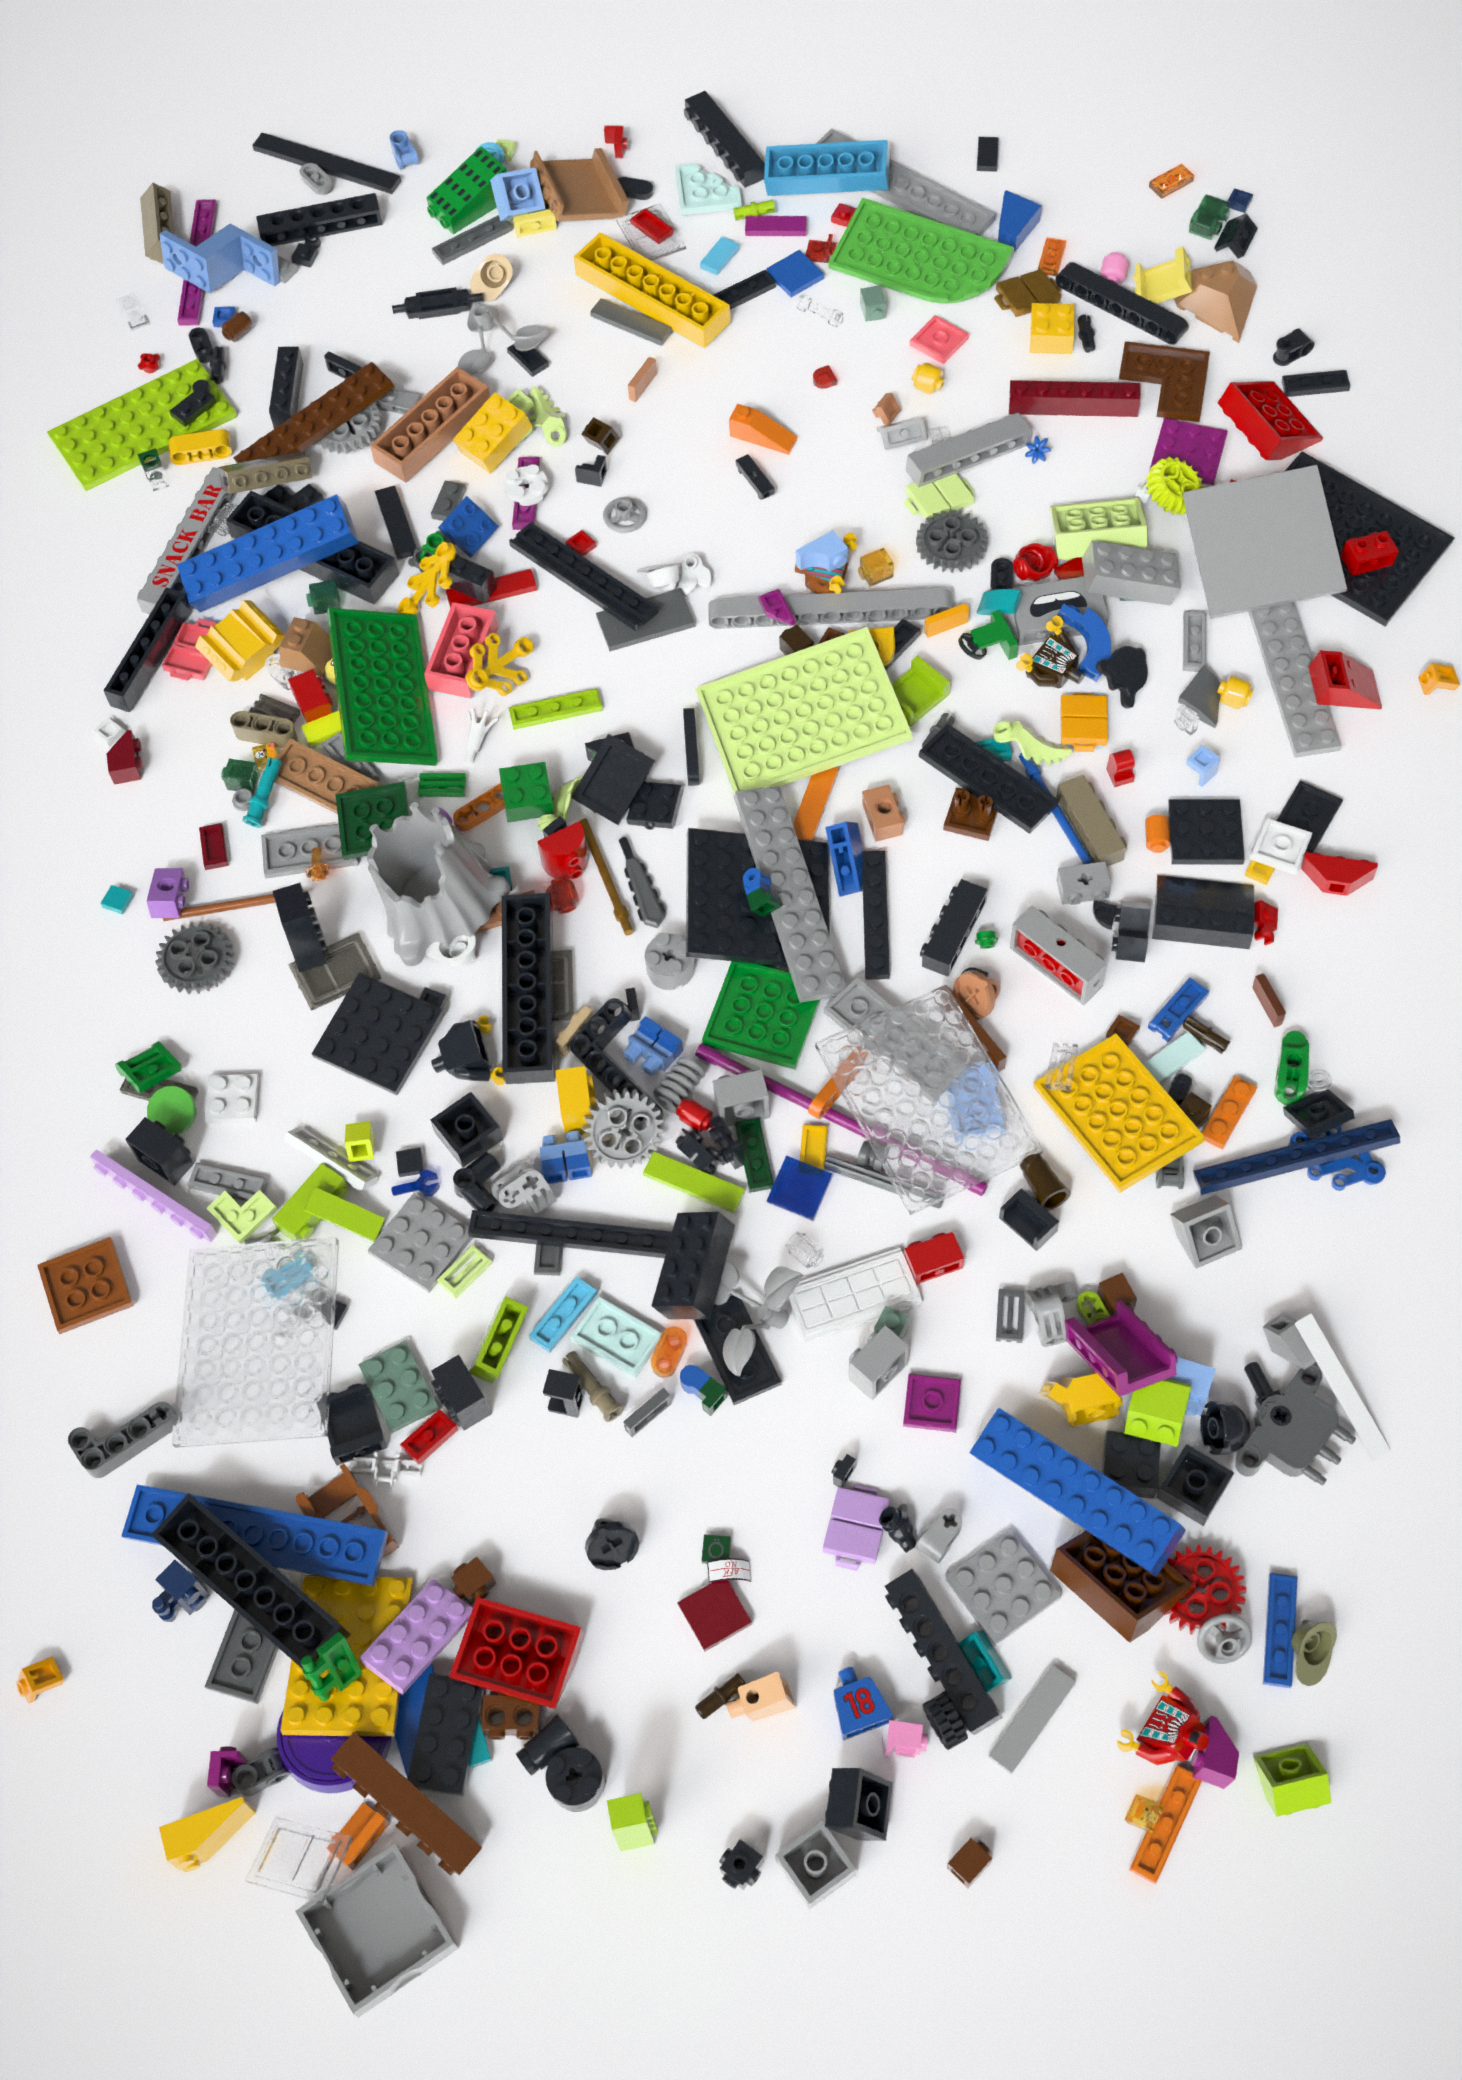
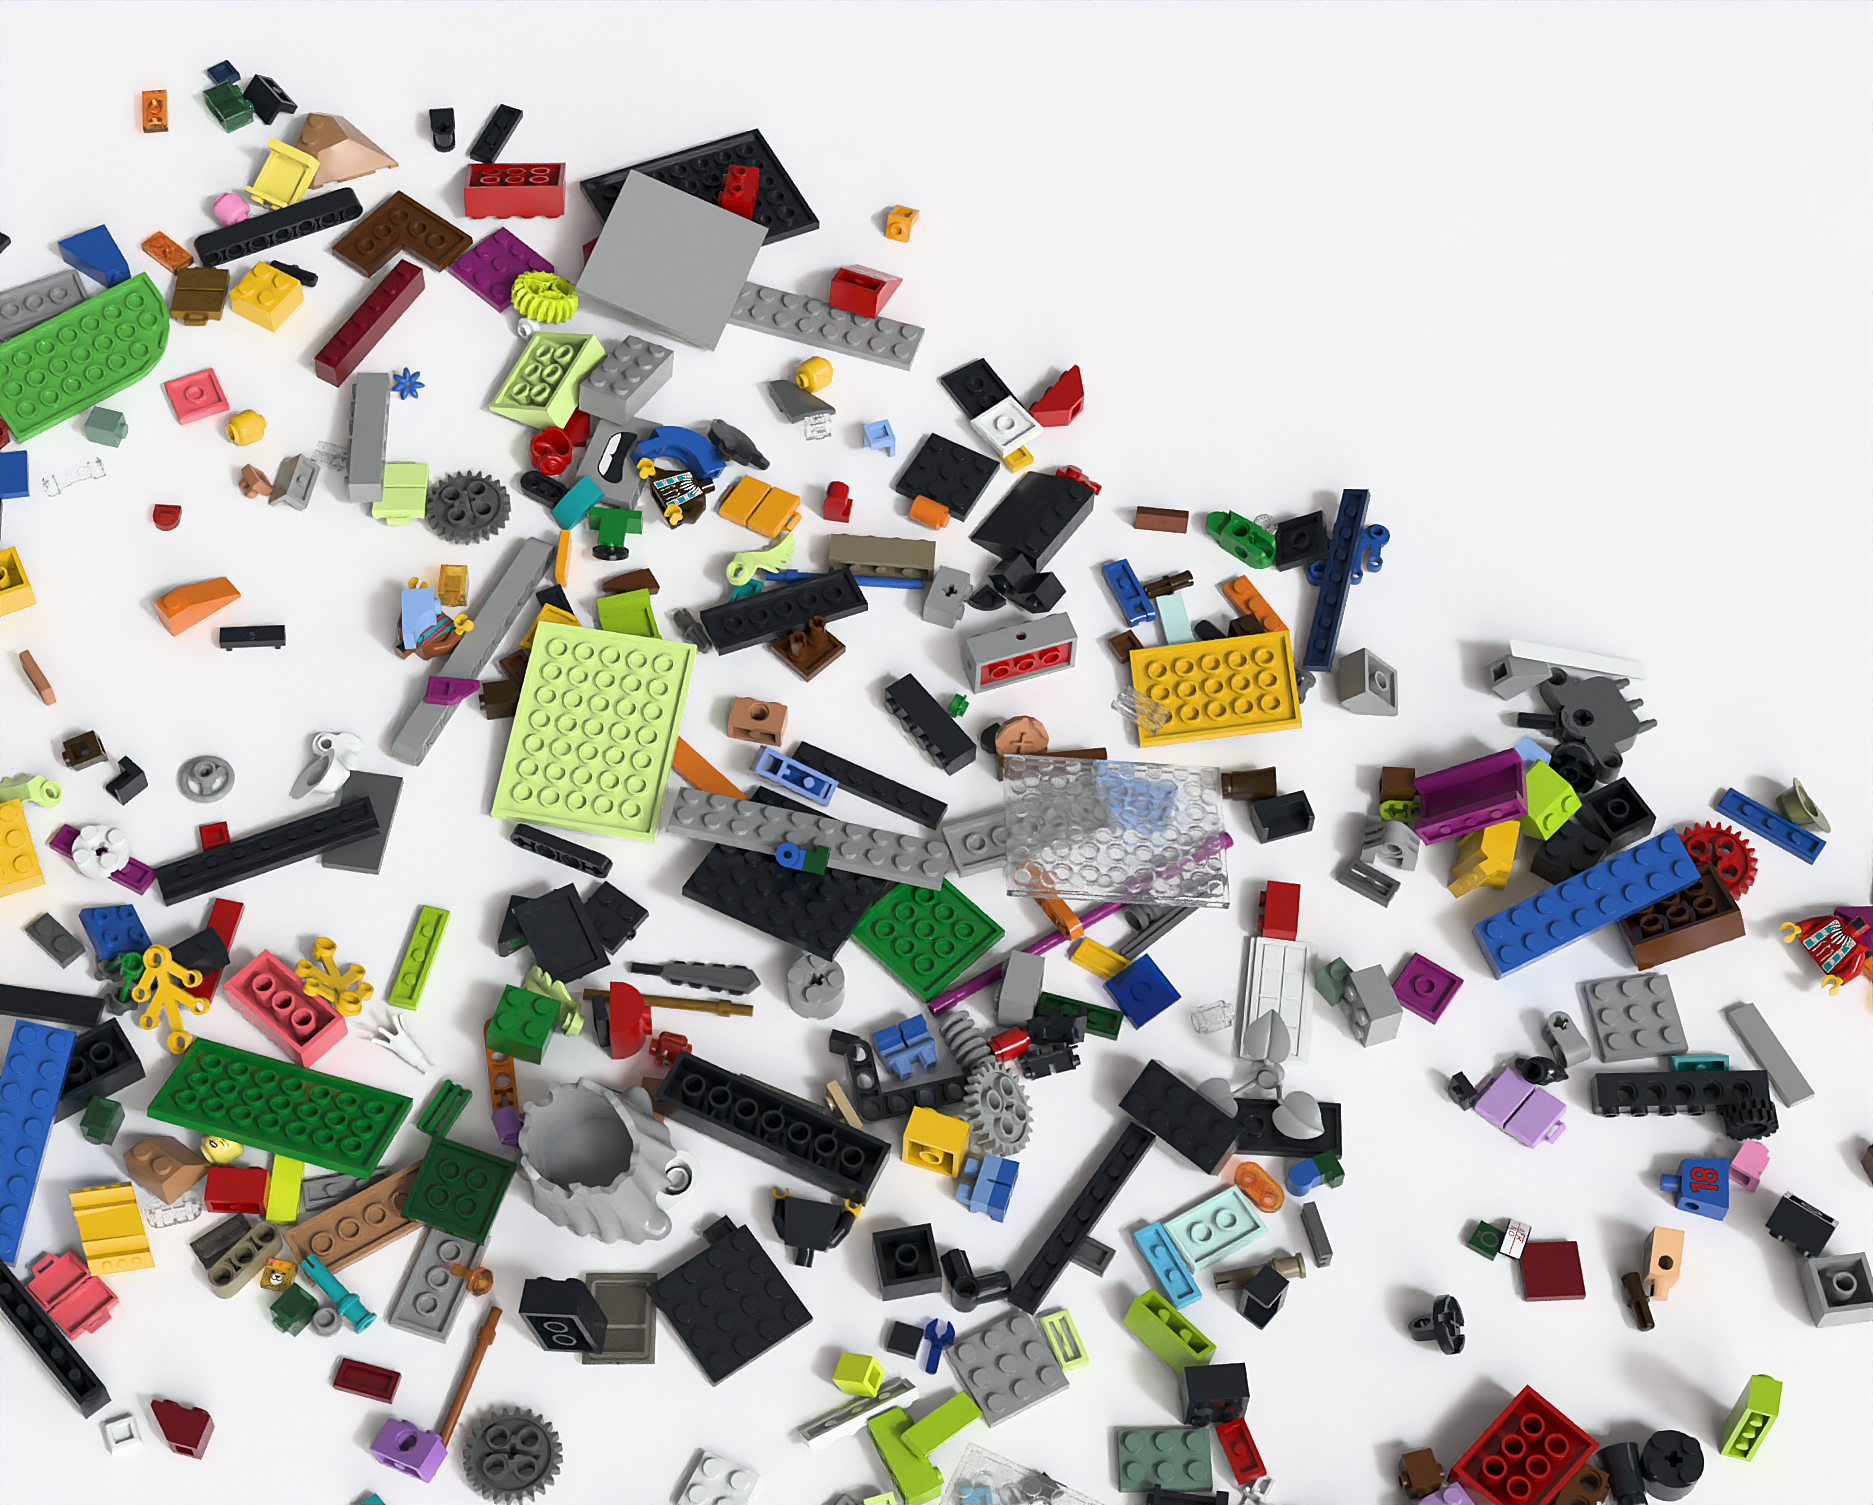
camera: 70 degrees left, 5 degrees down
(532, 1190) = (1014, 1232): light grey piece -> none
(694, 1182) = (1080, 1083): lime tile -> none
(740, 1855) = (1814, 1354): black brick -> none
(959, 677) = (632, 581): none -> reddish brown slope
(1194, 641) = (728, 378): light grey tile -> none
(1227, 1642) = (1773, 865): light grey piece -> none

